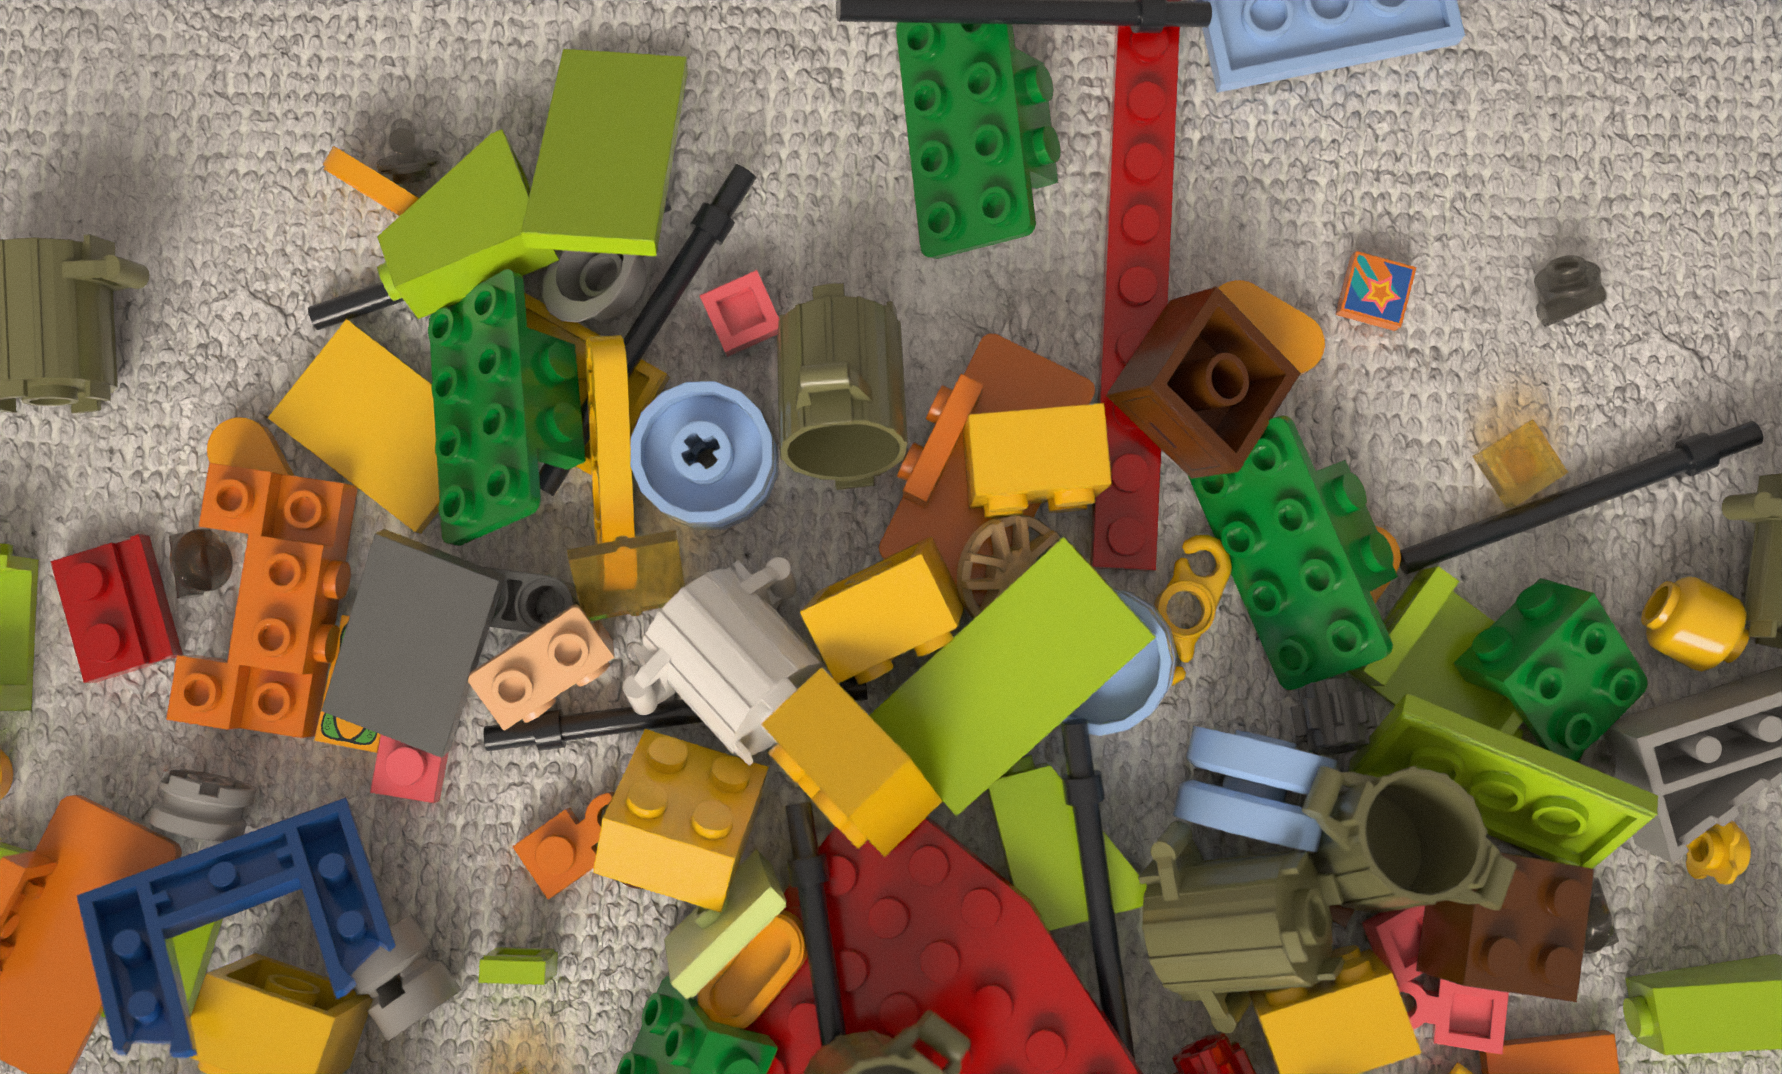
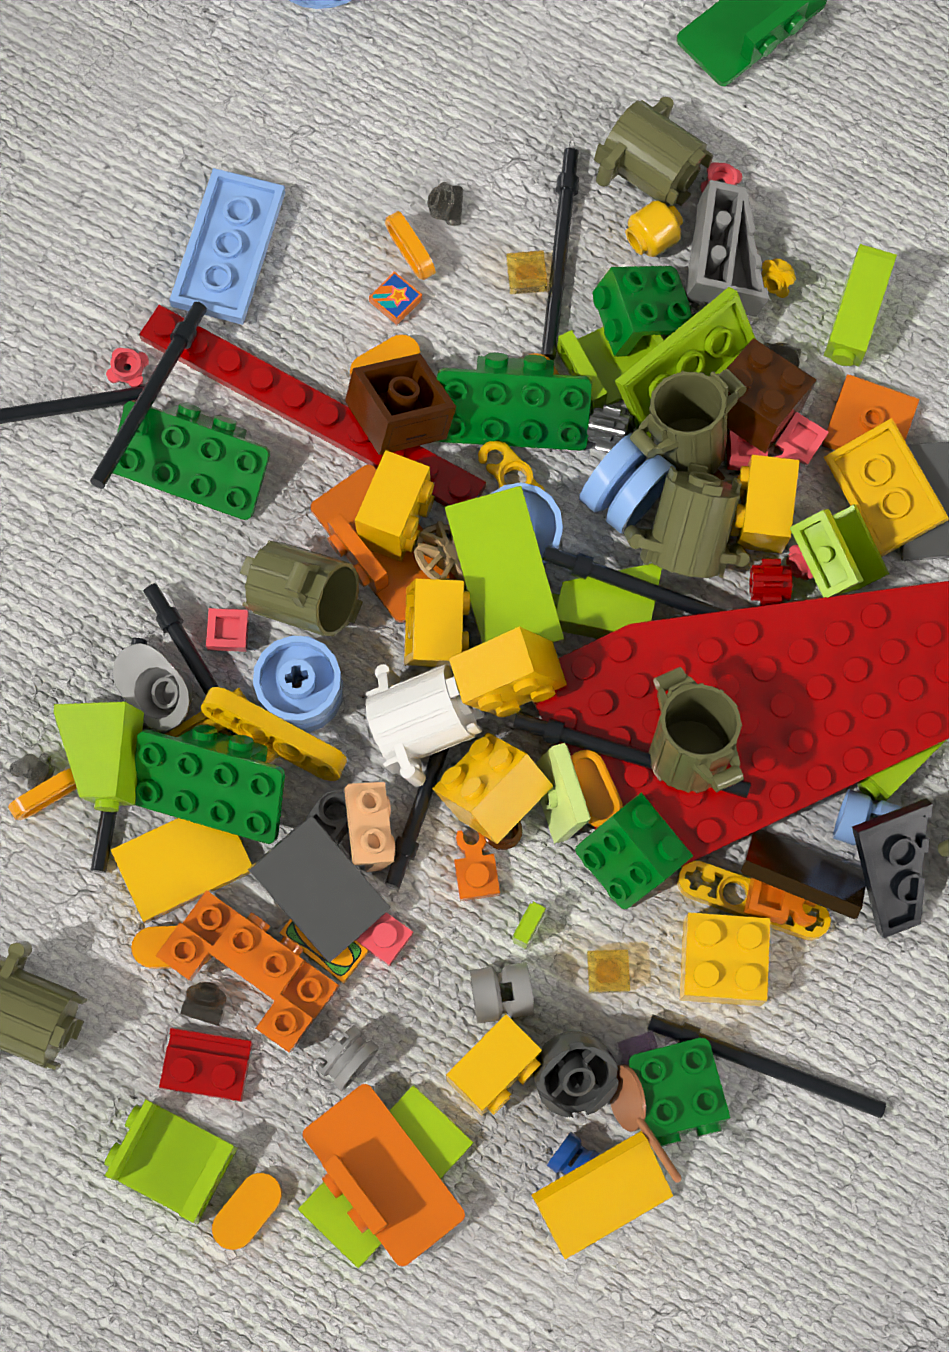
camera: 65 degrees left, 10 degrees down
(135, 917) = (408, 1001): blue wedge -> none
(606, 153) = (100, 650): lime tile -> none
(627, 574) = (342, 752): clear yellow piece -> none
(1469, 269) = (409, 245): none -> light orange tile

